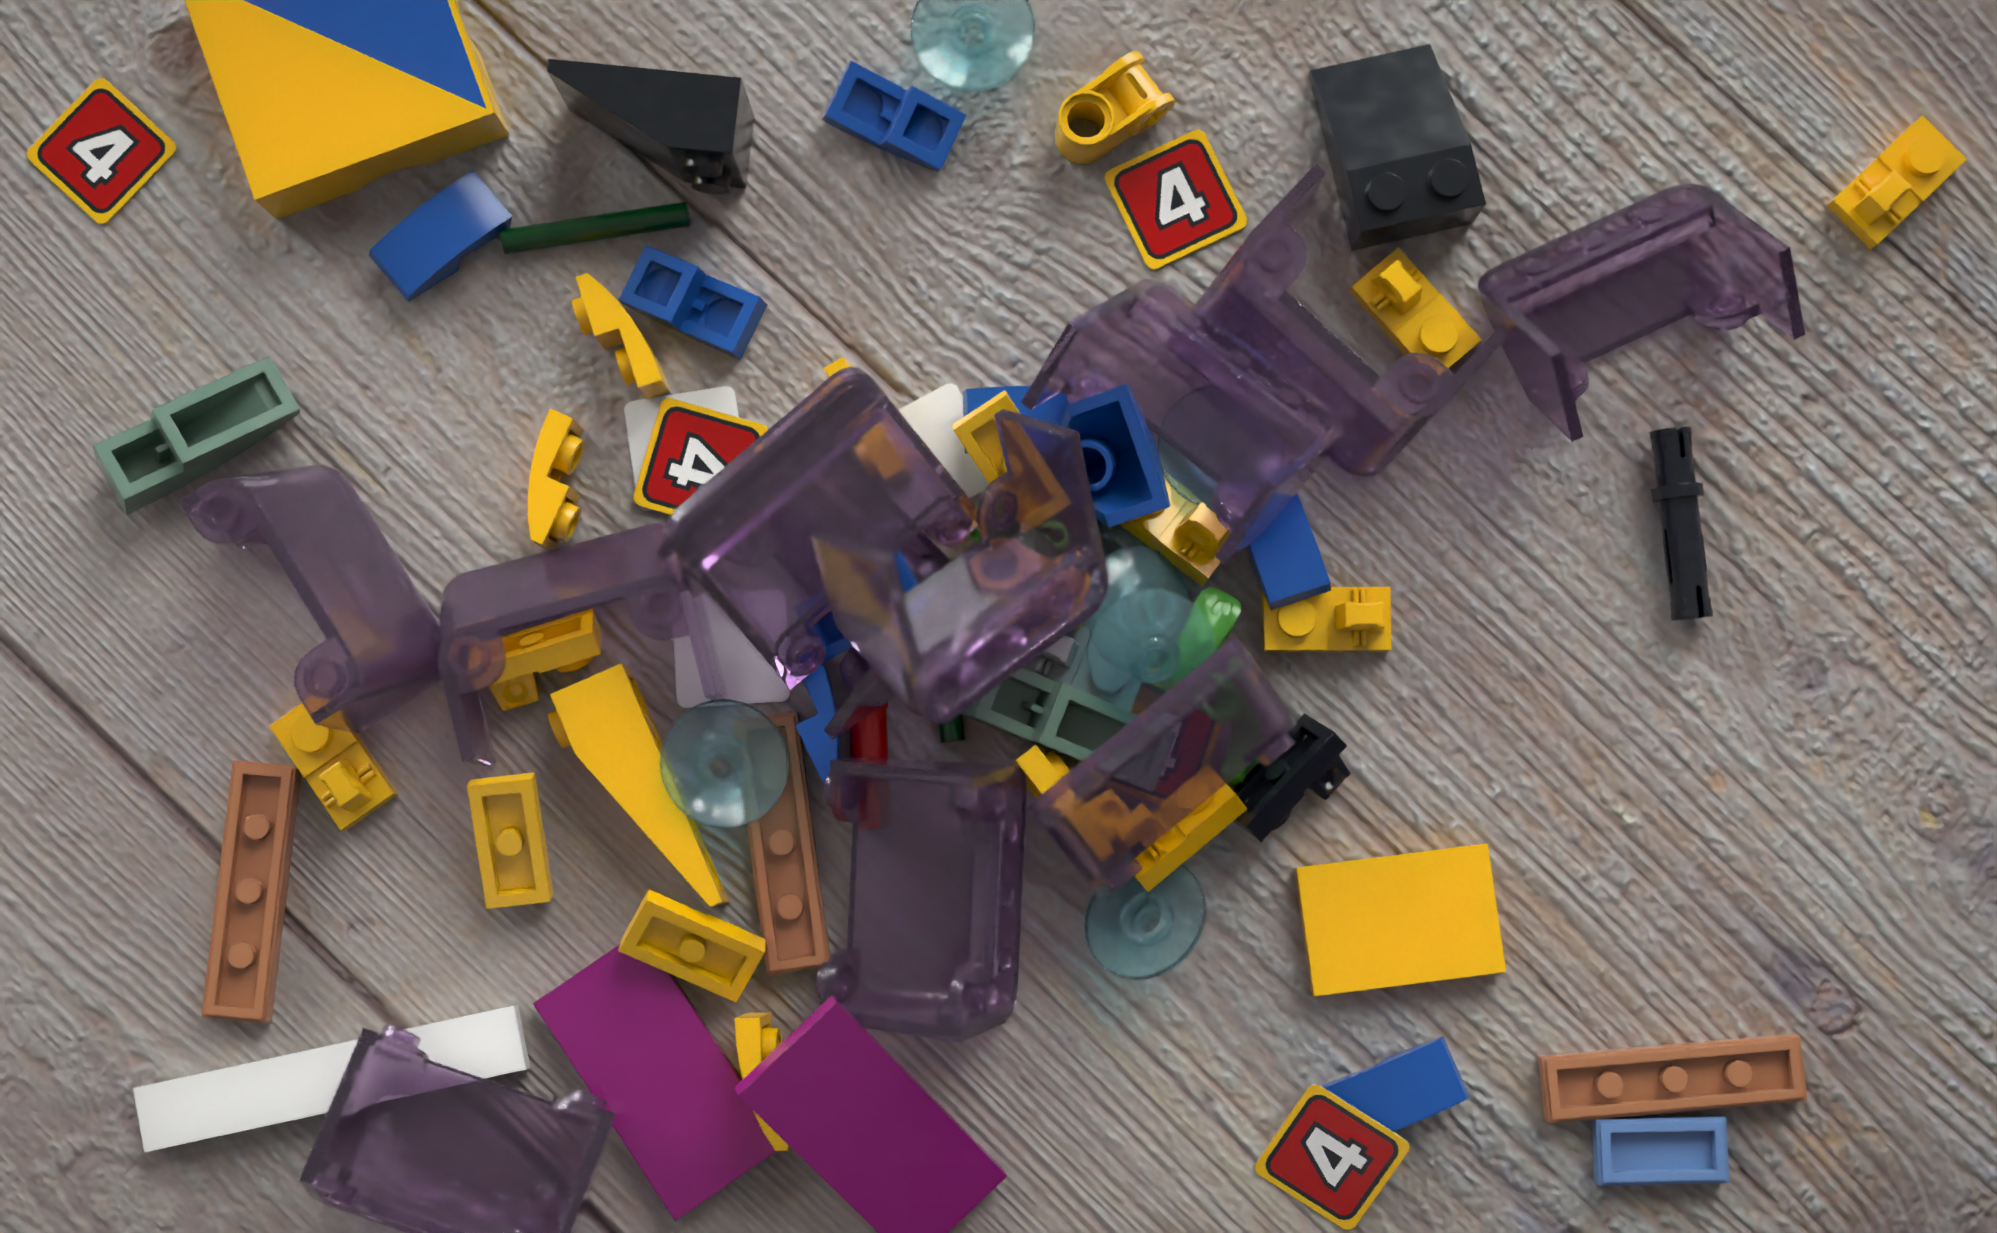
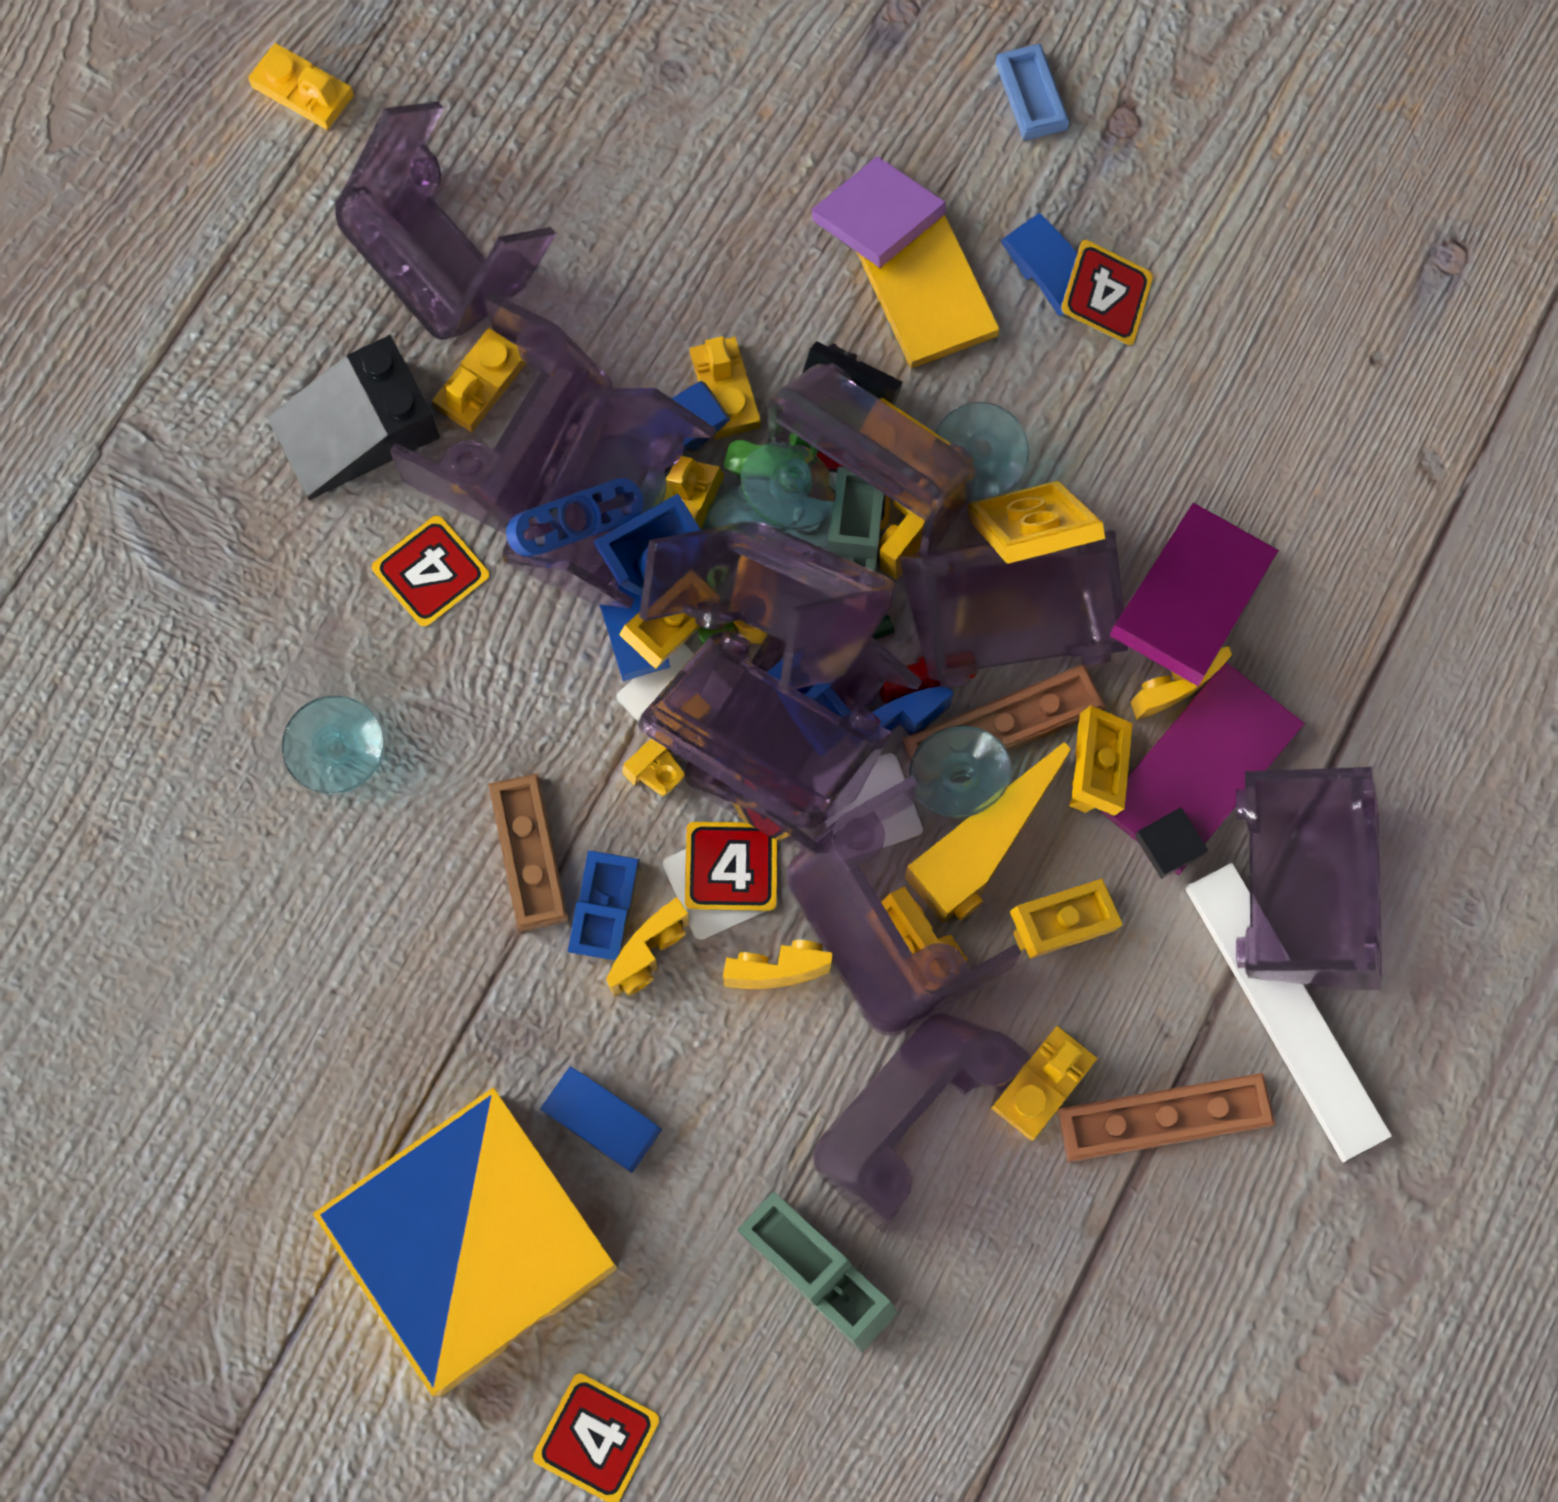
camera: 110 degrees left, 10 degrees down
(566, 999) = (1171, 843): none -> black tile
(595, 227) = (562, 1000): dark green bar -> none
(676, 119) = (468, 944): black slope -> none
(783, 231) = (528, 852): none -> medium nougat tile
(893, 118) = (415, 792): blue slope -> none
(1012, 949) = (1034, 521): none -> yellow tile
(1121, 104) = (368, 622): yellow piece -> none
(1143, 327) = (589, 501): none -> blue beam
(1522, 884) = (878, 211): none -> medium lavender tile
(1672, 1078) = (981, 95): nougat tile -> none
(1681, 523) = (589, 168): black pin -> none

